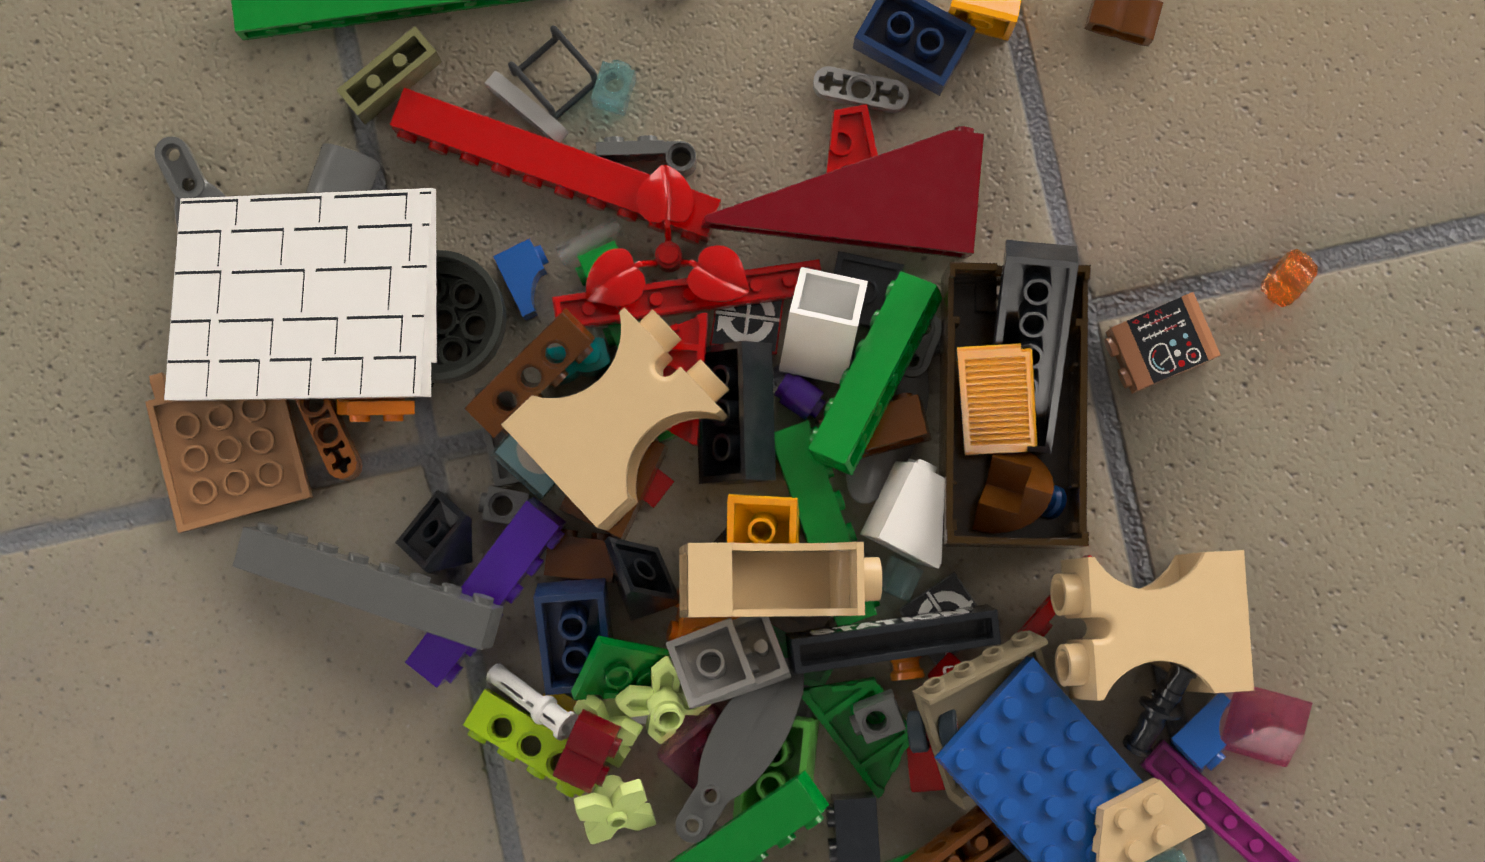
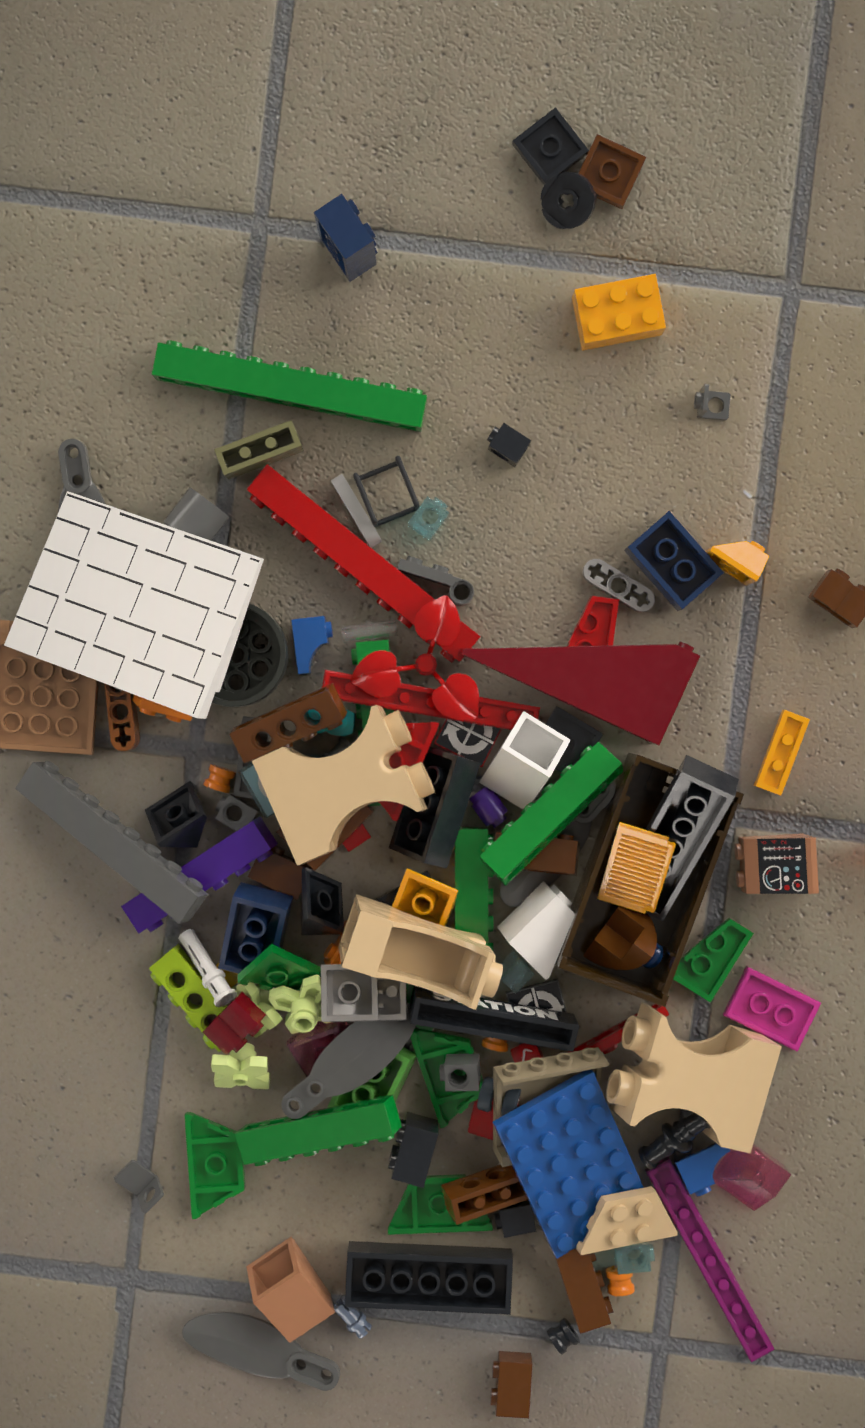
camera: 15 degrees right, 5 degrees up
(471, 473) = (219, 778): none -> orange wheel
(1119, 215) = (781, 752): none -> light orange plate
(1126, 484) = (712, 959): none -> green wing
(1218, 518) = (771, 1008): none -> dark pink tile

